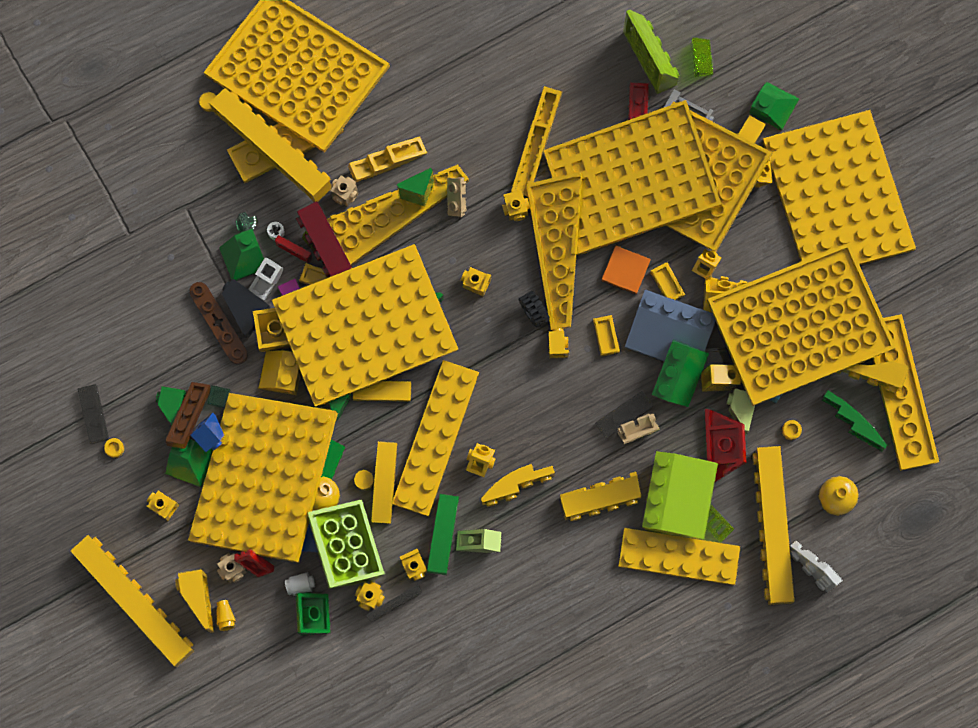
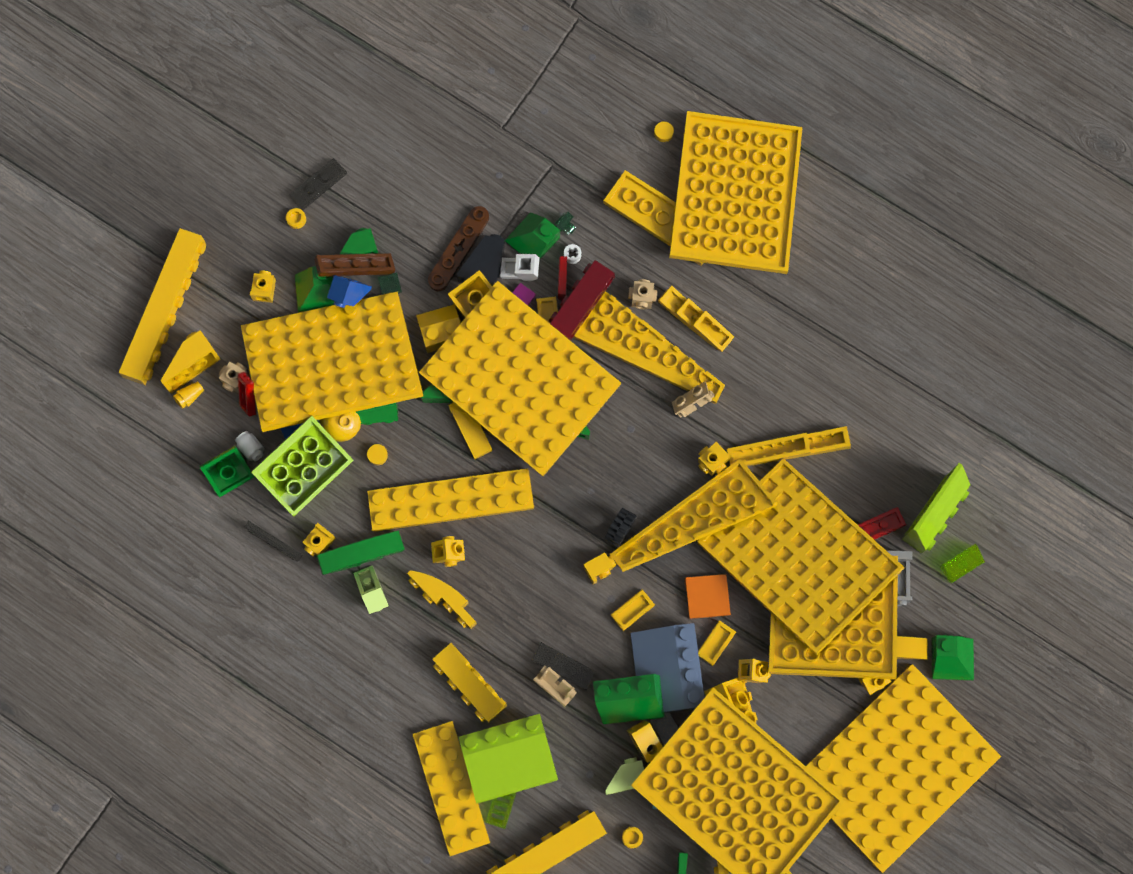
camera: 60 degrees right, 0 degrees up
(271, 145) = (647, 207): yellow brick -> none
(372, 603) = (271, 521): yellow brick -> none
(384, 482) = (383, 473): yellow slope -> none
(417, 188) = (678, 358): green slope -> none
(477, 287) = (620, 467): yellow brick -> none
(724, 443) = (583, 777): red wing -> none

